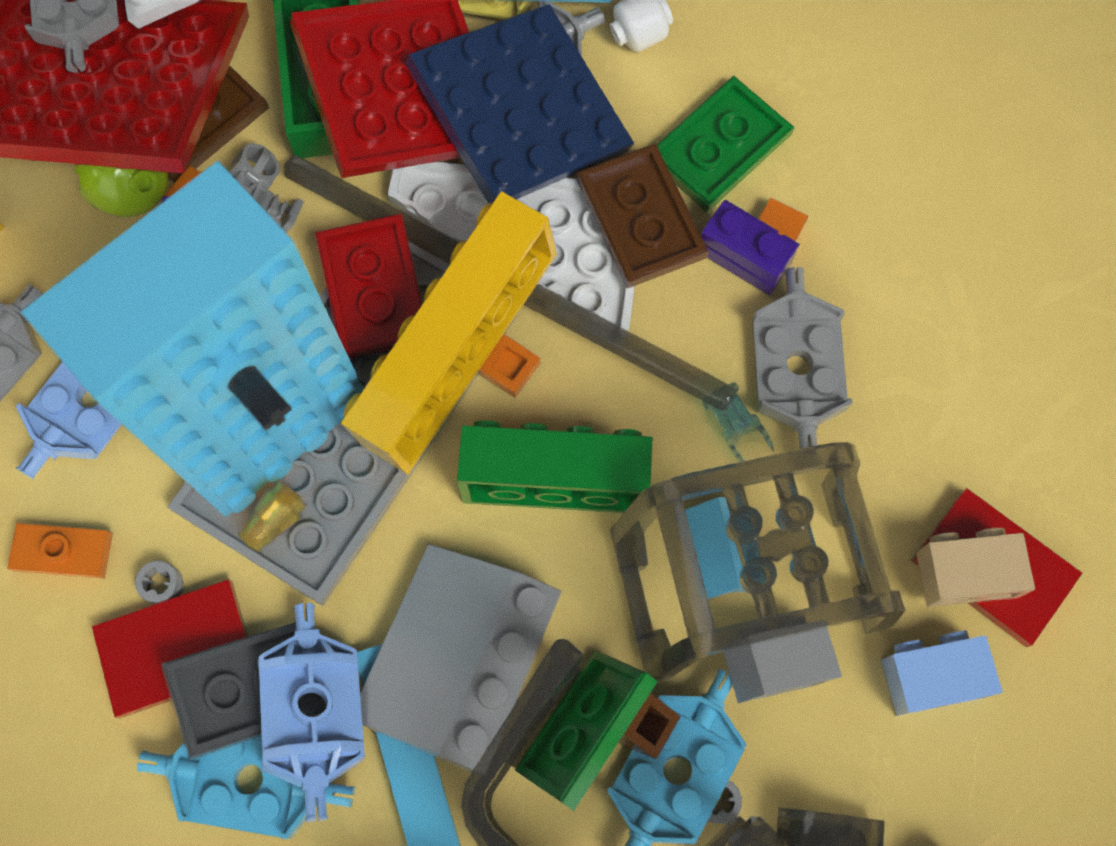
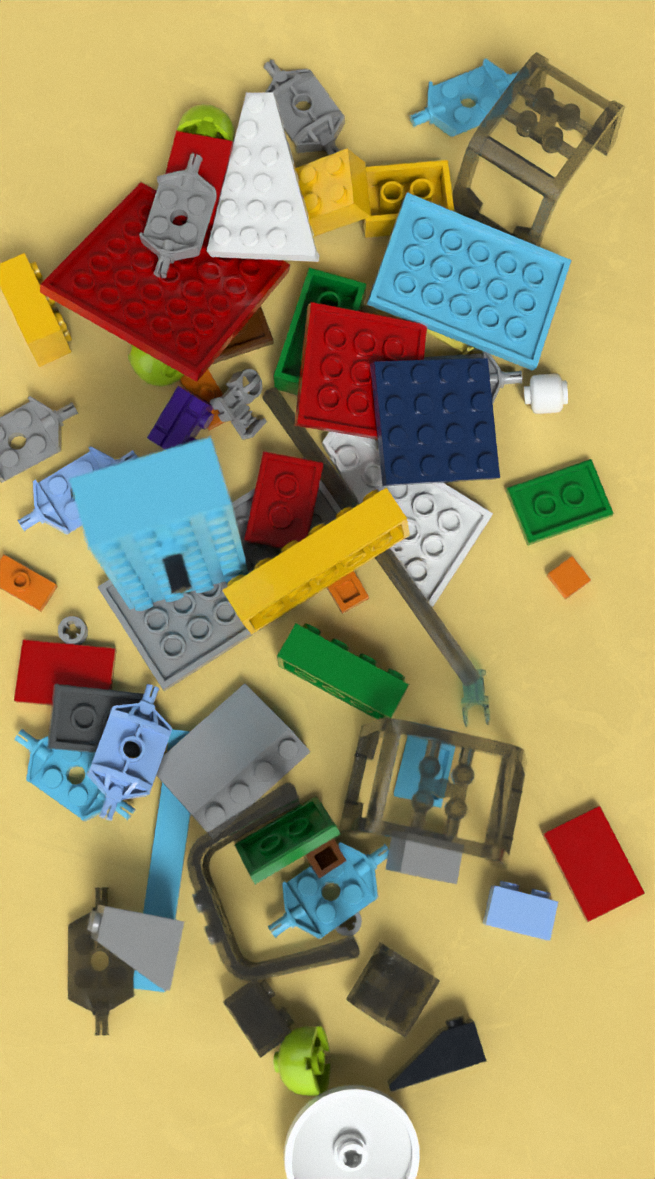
camera: 25 degrees right, 5 degrees up
(272, 516) = (158, 623): clear yellow cone -> none
(642, 215) = (479, 531): reddish brown tile -> none
(748, 247) = (538, 584): dark purple brick -> none
(807, 329) = (553, 657): light grey plate -> none
(974, 568) = (574, 858): tan brick -> none

